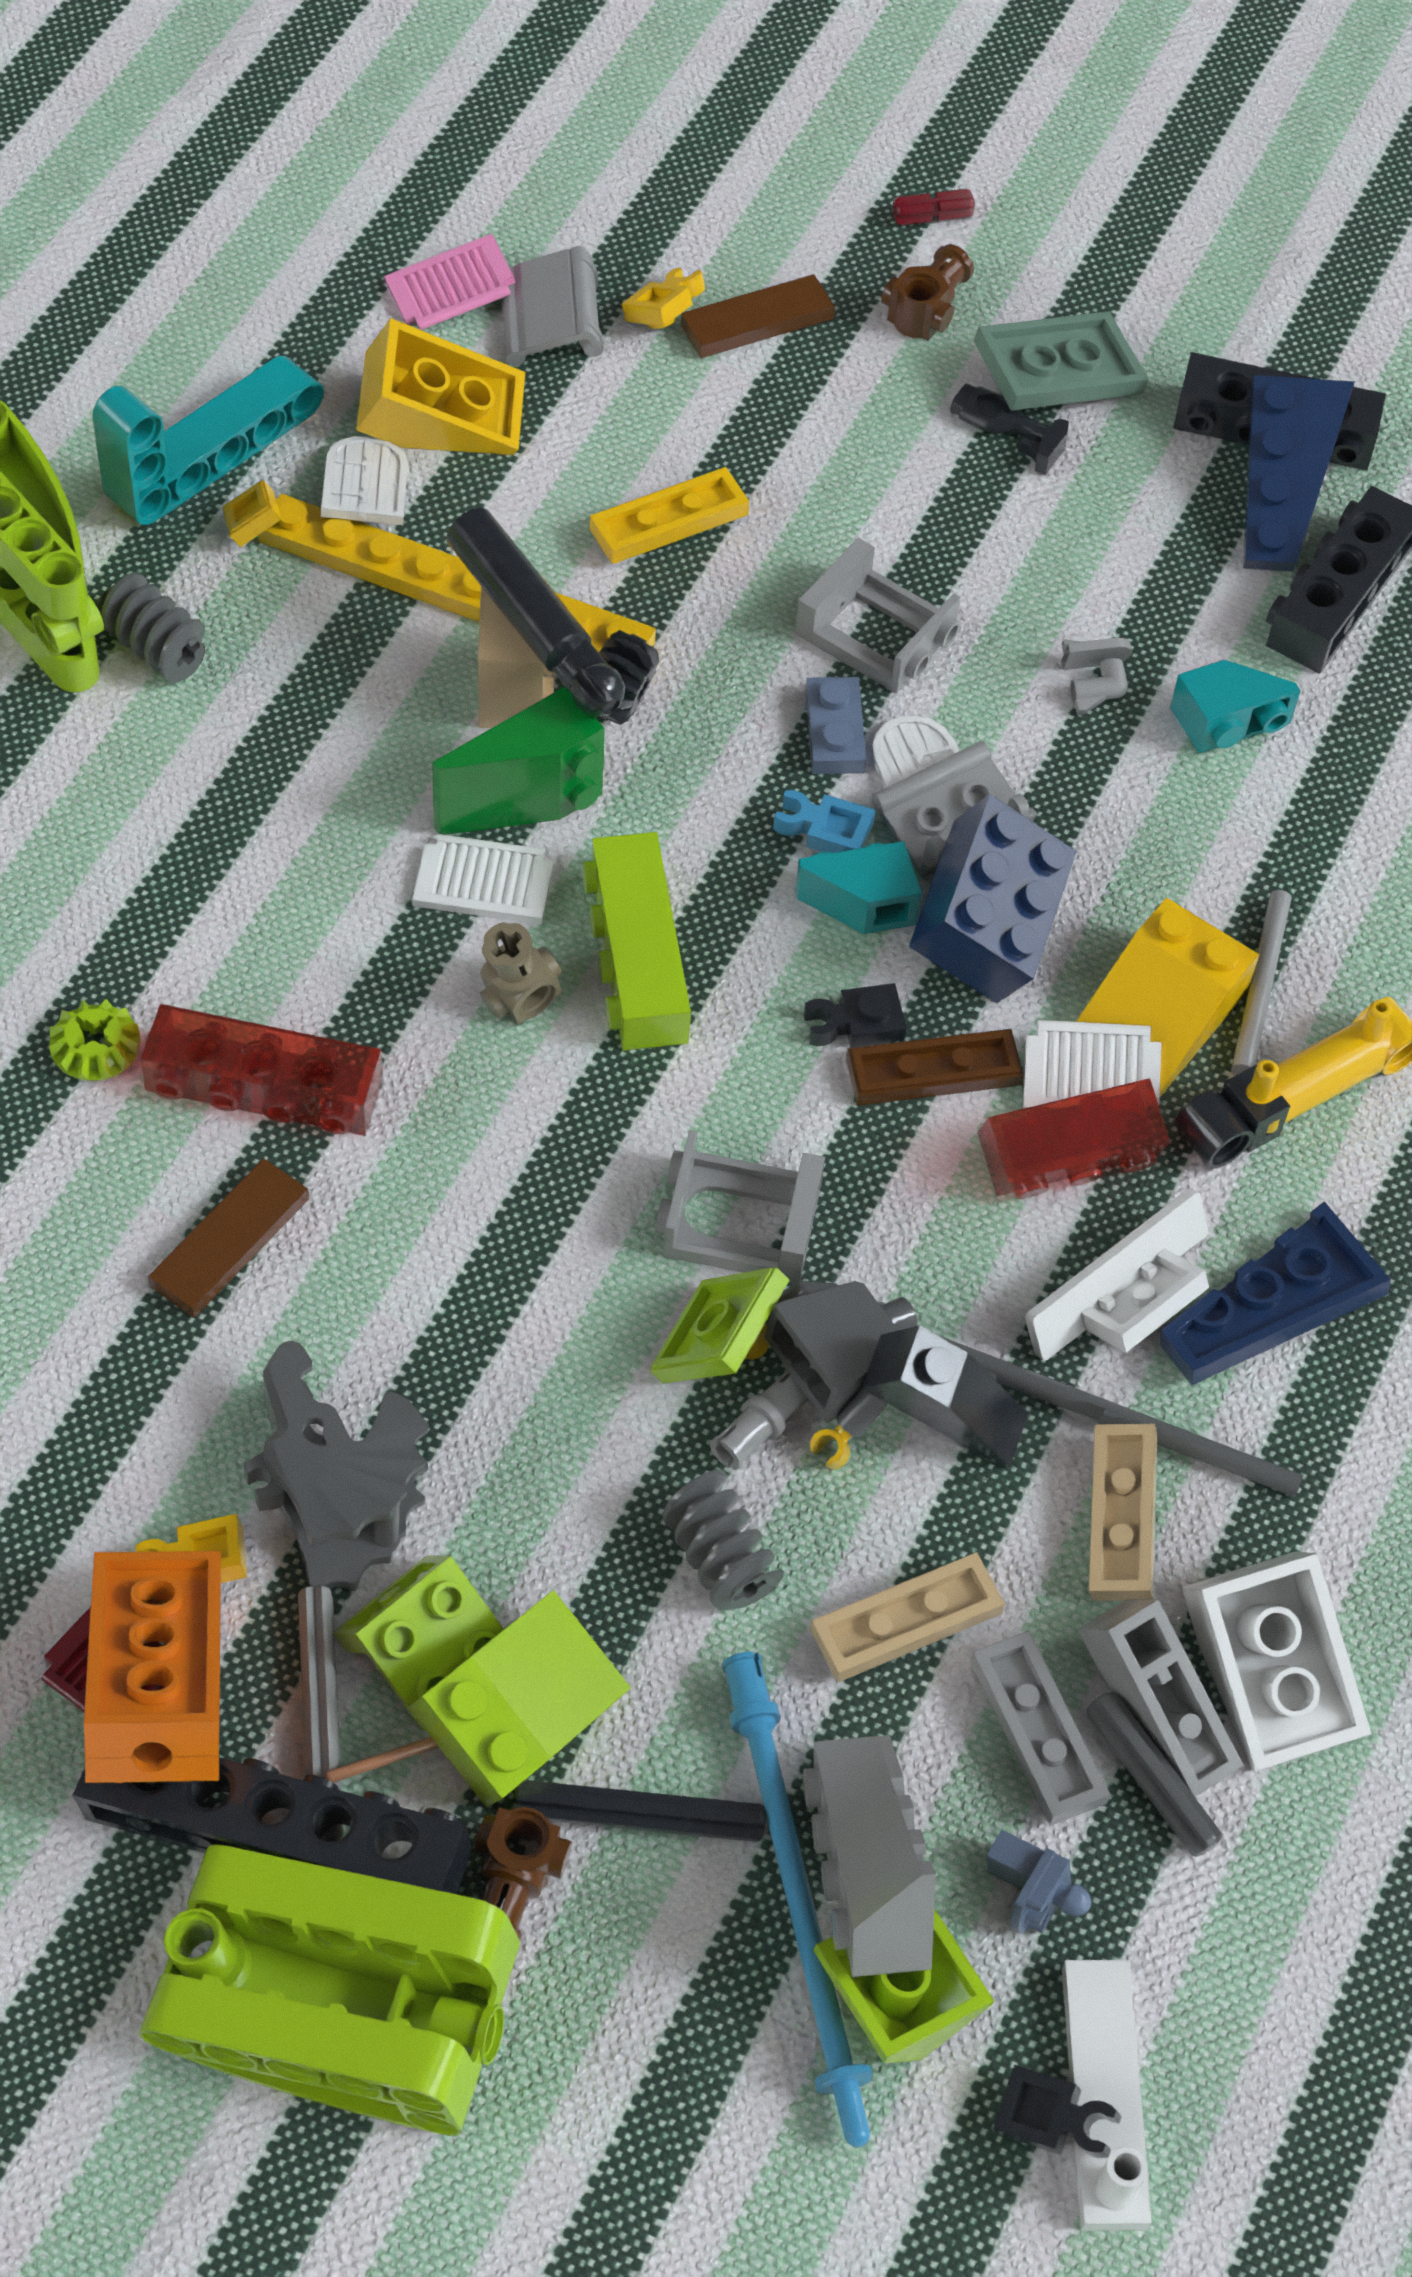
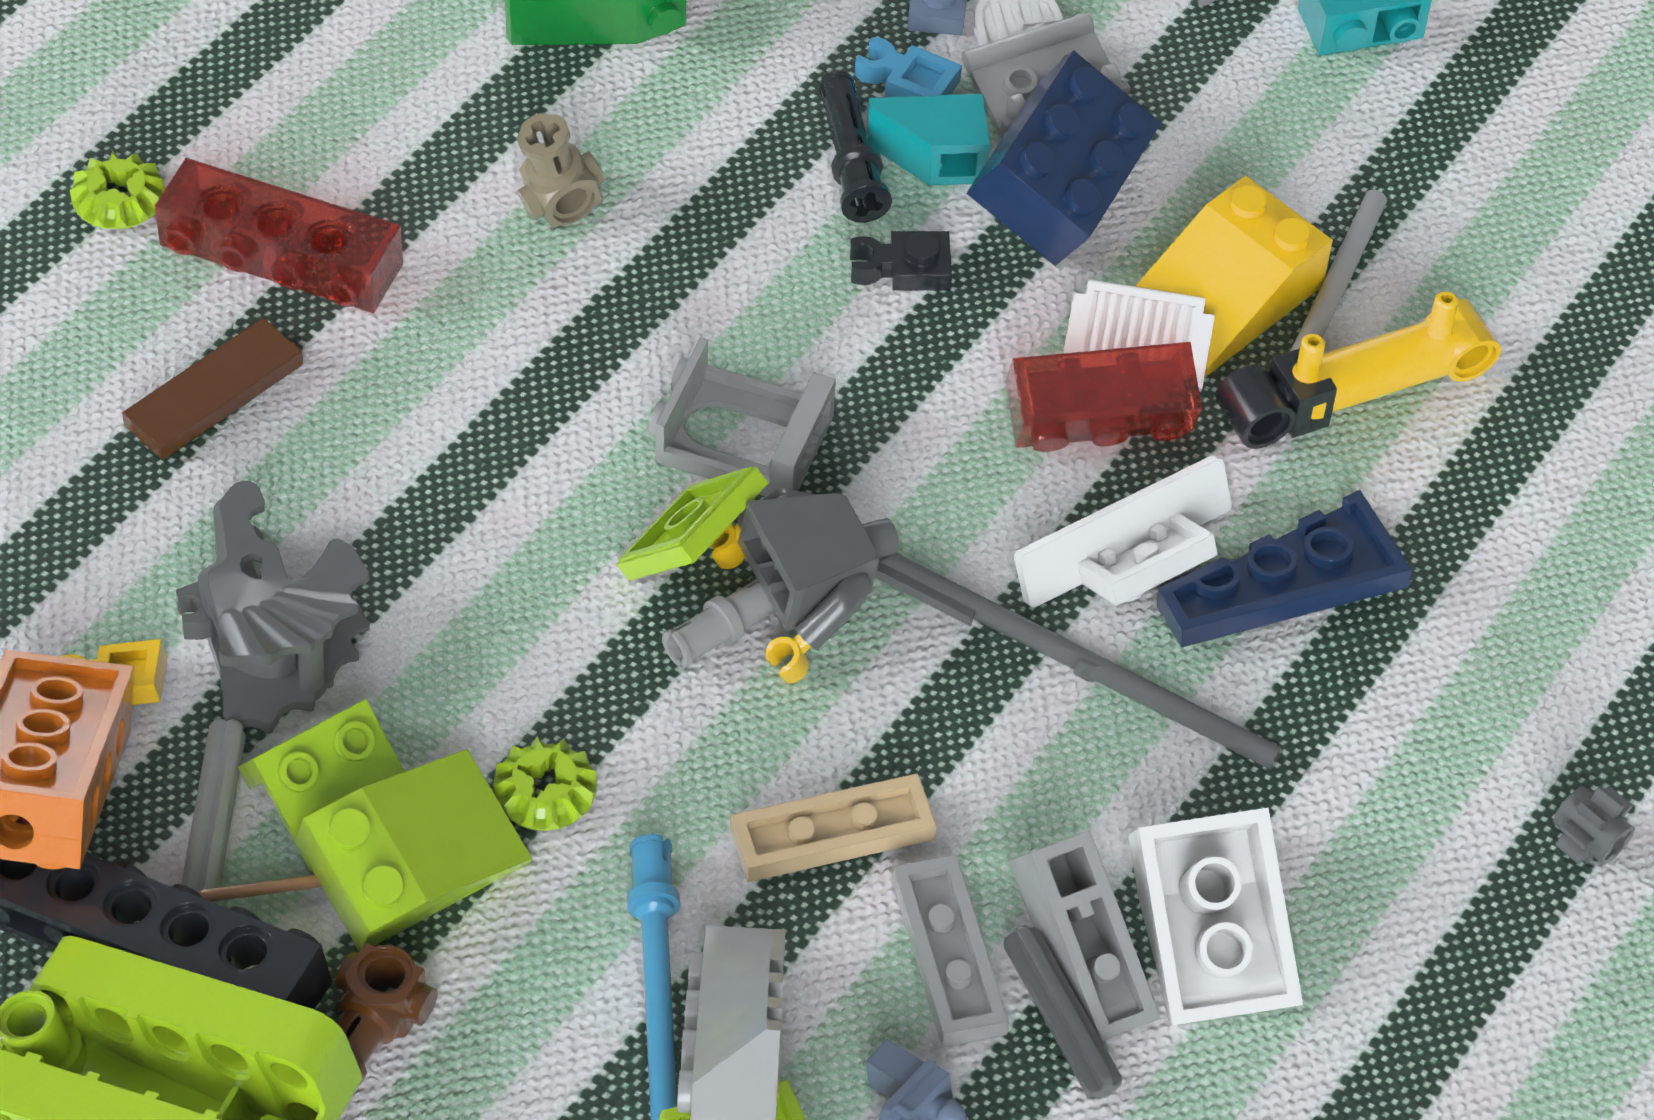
camera: 10 degrees right, 5 degrees down
(484, 879) = (536, 81): white window -> none
(639, 941) = (690, 163): lime brick -> none
(643, 1810) = (522, 975): black axle -> none
(646, 1628) = (559, 802): none -> lime gear
(717, 1544) = (652, 729): dark grey piece -> none
(794, 922) = (856, 163): none -> black pin
(934, 1067) = (975, 316): reddish brown tile -> none
(946, 1392) = (914, 612): black slope -> none
(1123, 1512) = (1081, 755): tan plate -> none

